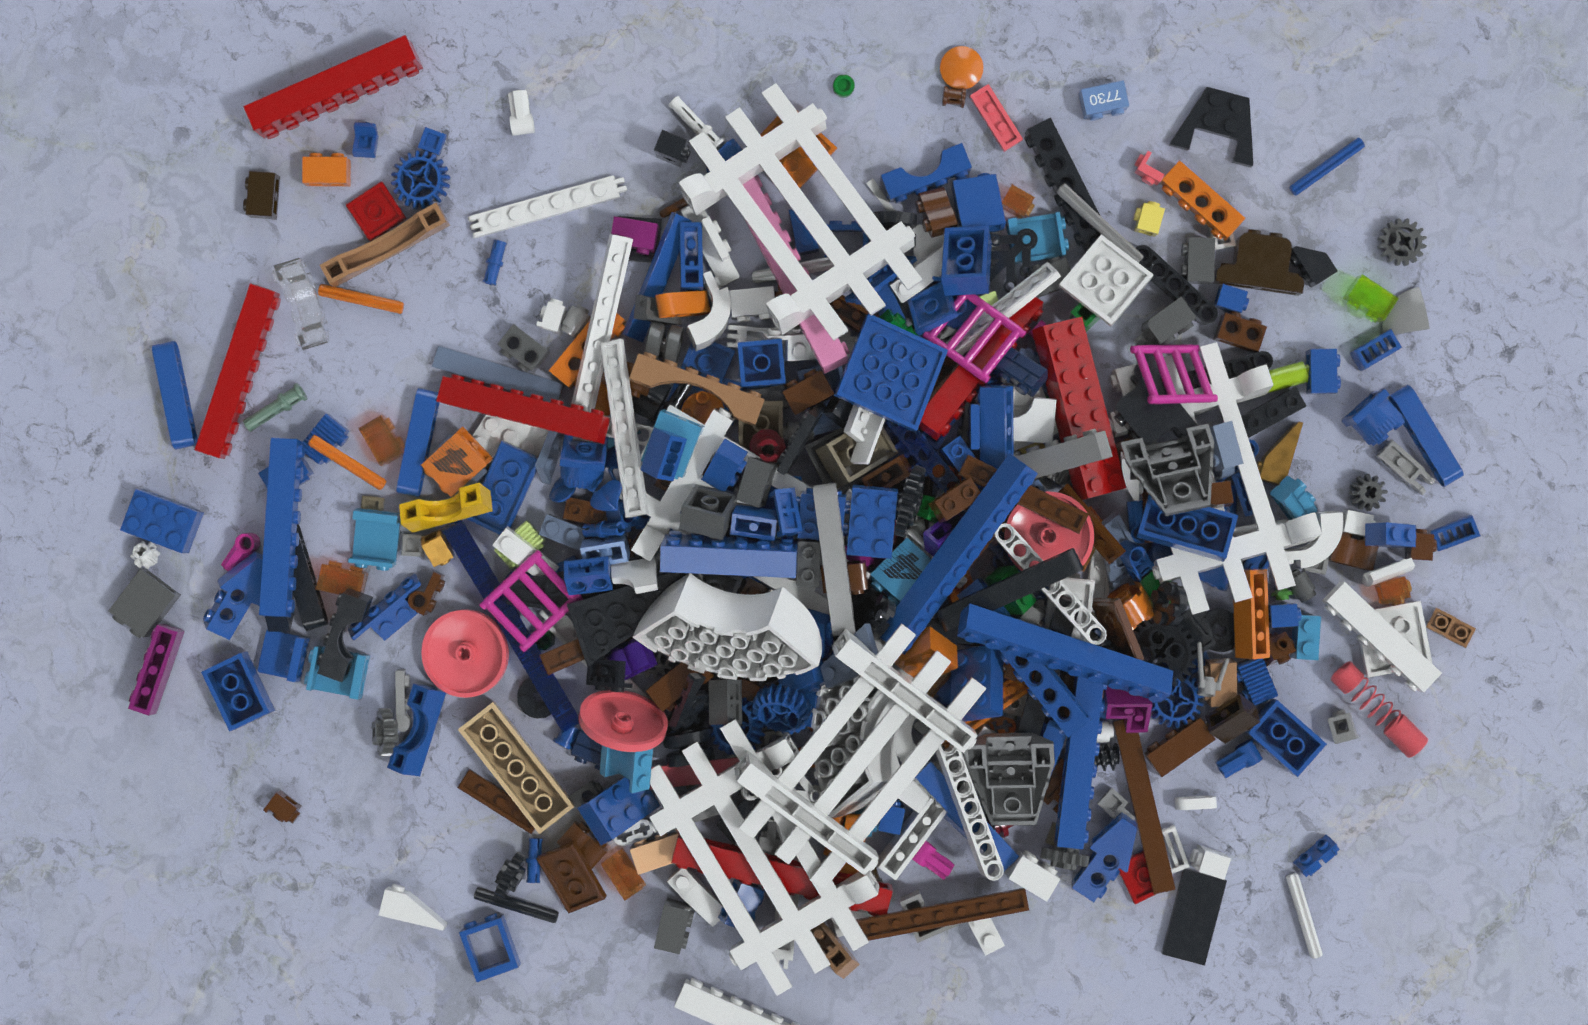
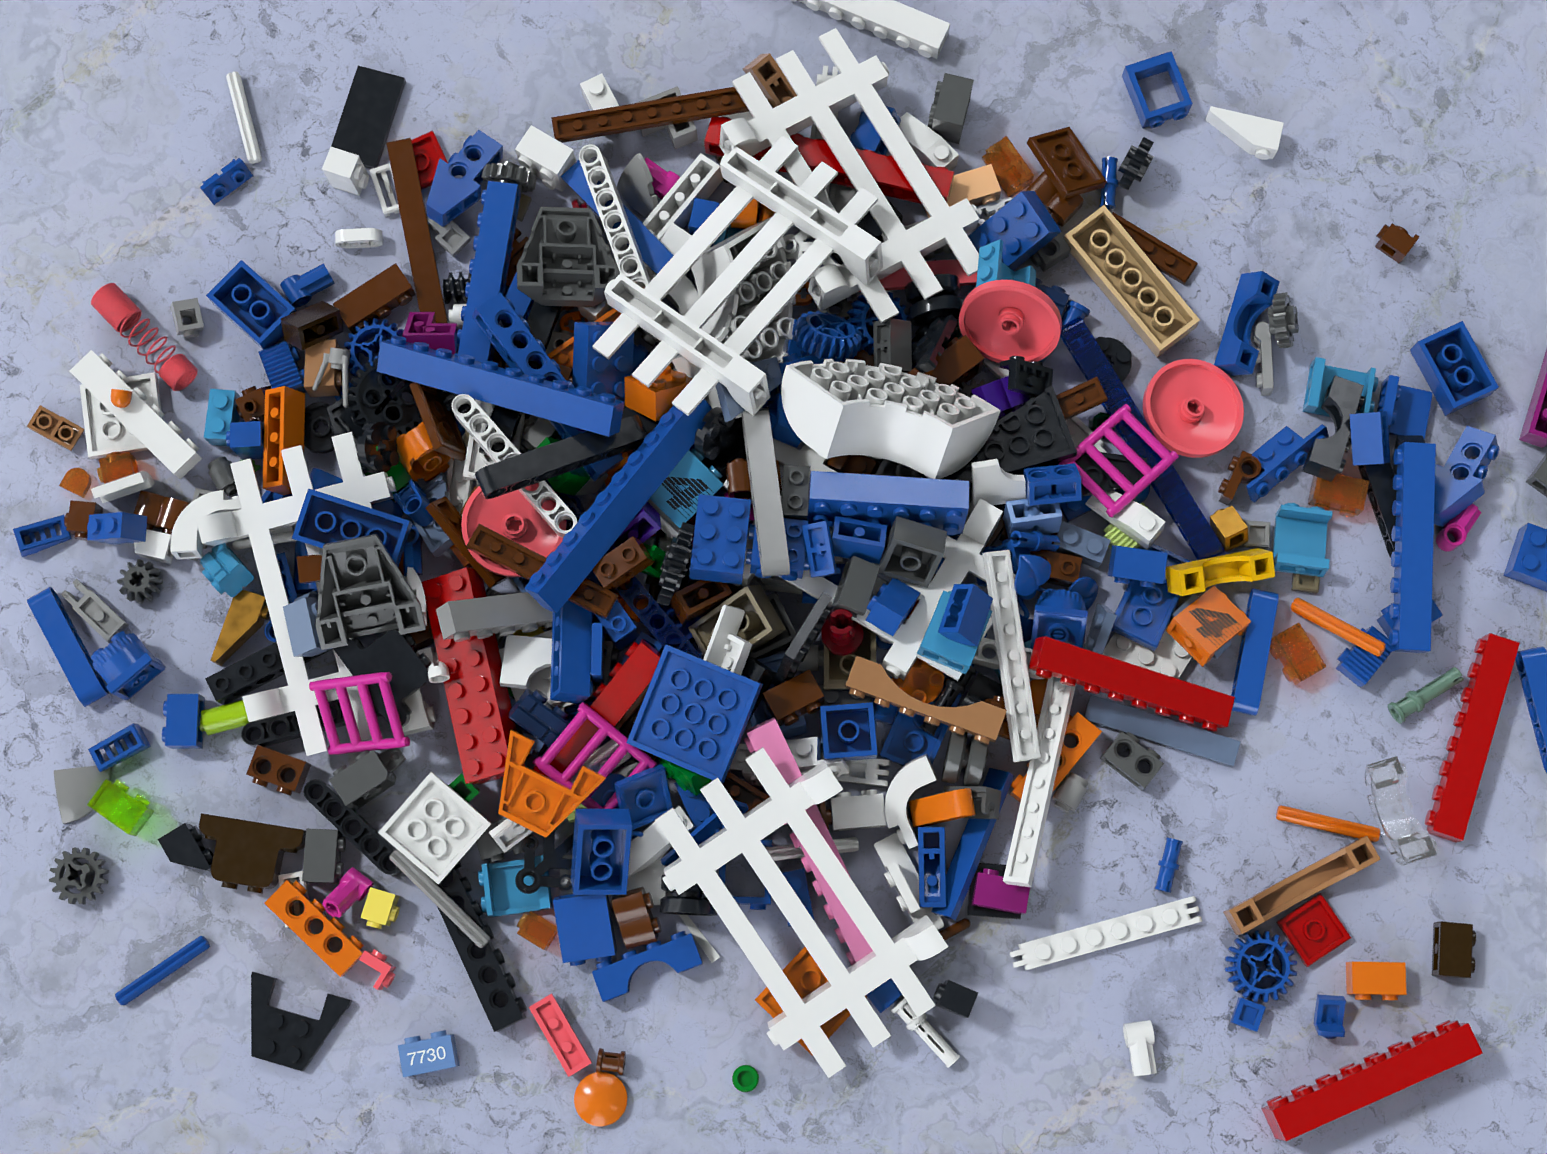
camera: 175 degrees left, 10 degrees down
(313, 624) = (1370, 438): none -> blue brick
(516, 511) = (1138, 565): none -> blue brick
(516, 905) = (1126, 135): black axle -> none
(552, 316) = (1097, 798): white brick -> none
(951, 850) = (637, 187): none -> light grey brick
(1022, 301) = (536, 799): none -> orange wing
(1108, 406) = (438, 673): none -> white hinge
(1174, 233) = (351, 888): none -> dark pink piece
(1231, 299) = (287, 809): blue brick -> none
(1394, 647) = (120, 398): none -> orange hinge
(1428, 580) = (76, 481): none -> clear orange tile

